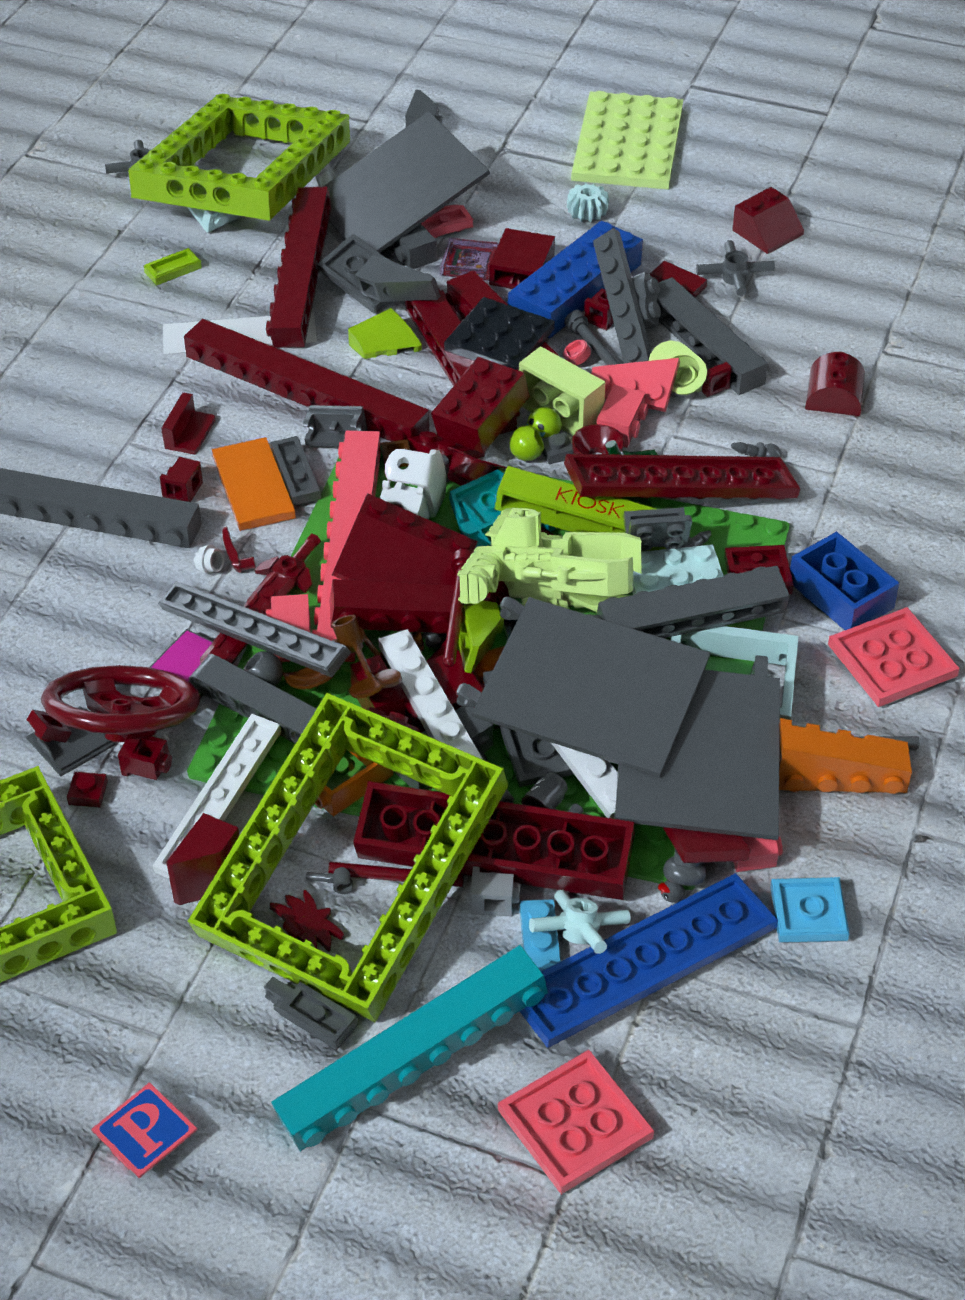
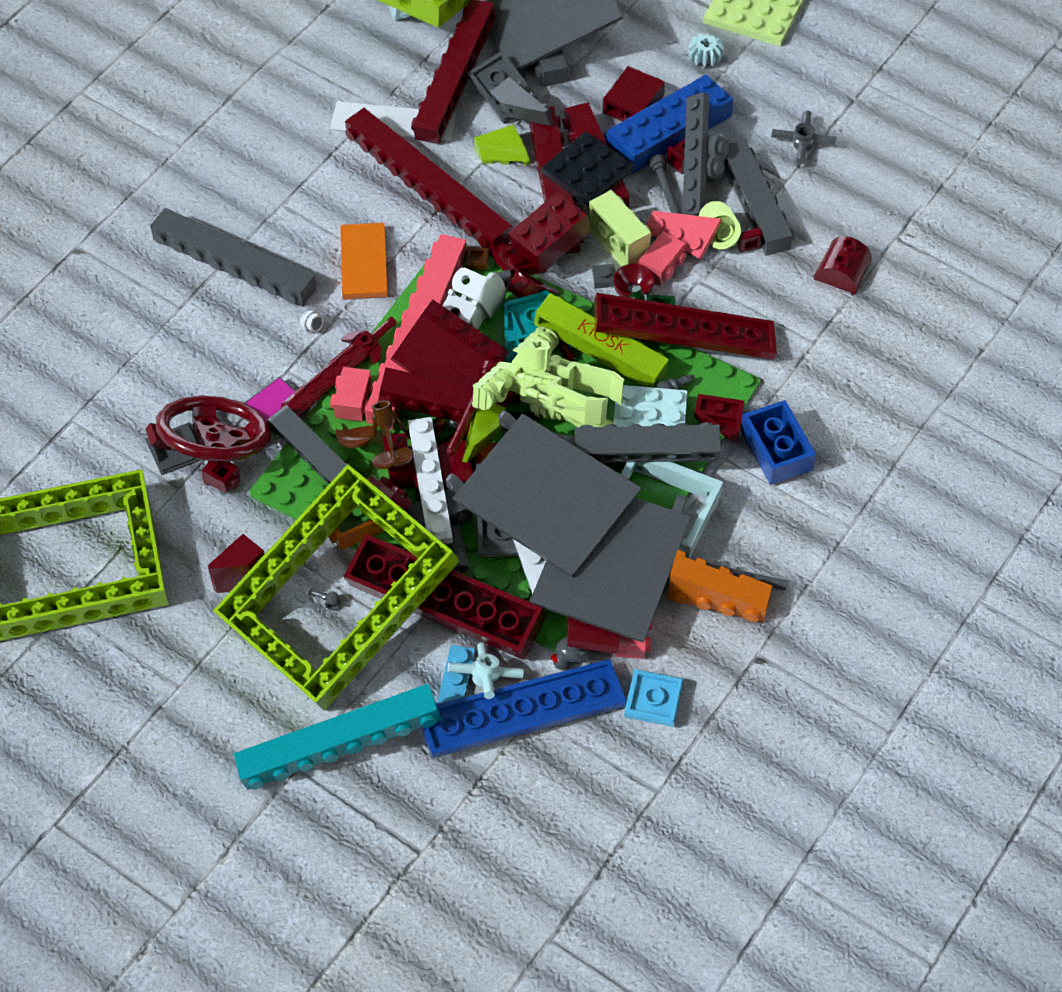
camera: 15 degrees right, 10 degrees up
(87, 789) = (176, 490): dark red plate -> none
(144, 1130) = (147, 751): piece -> none
(172, 266) = (358, 48): lime tile -> none
(182, 480) = (310, 249): dark red brick -> none
(185, 427) = (327, 200): dark red panel -> none
(226, 782) = (273, 507): white plate -> none
(238, 564) = (330, 319): dark red piece -> none
(255, 628) = (323, 390): dark grey tile -> none
(266, 667) = (323, 424): dark grey piece -> none
(295, 470) = (398, 256): dark grey plate -> none
(306, 922) = (299, 626): dark red piece -> none
(311, 1011) = (282, 694): dark grey hinge -> none
(329, 424) = (437, 221): dark grey hinge -> none
(381, 872) = (361, 600): dark red bar -> none
(448, 220) = (588, 47): coral wing -> none
(467, 255) = (591, 85): clear purple tile -> none
(493, 893) = (433, 634): light grey brick -> none
(526, 443) = (579, 269): lime piece -> none
(545, 421) = (599, 253): lime piece -> none
(549, 793) = (492, 570): dark grey piece -> none
(575, 1121) = (435, 813): coral plate -> none
(577, 352) = (648, 192): coral tile -> none
(659, 527) = (644, 370): dark grey bracket -> none
(693, 283) = (755, 137): dark red tile -> none
(758, 450) = (761, 312): dark grey bar -> none
(767, 220) = (847, 96): dark red slope -> none
(893, 656) = (794, 511): coral plate -> none

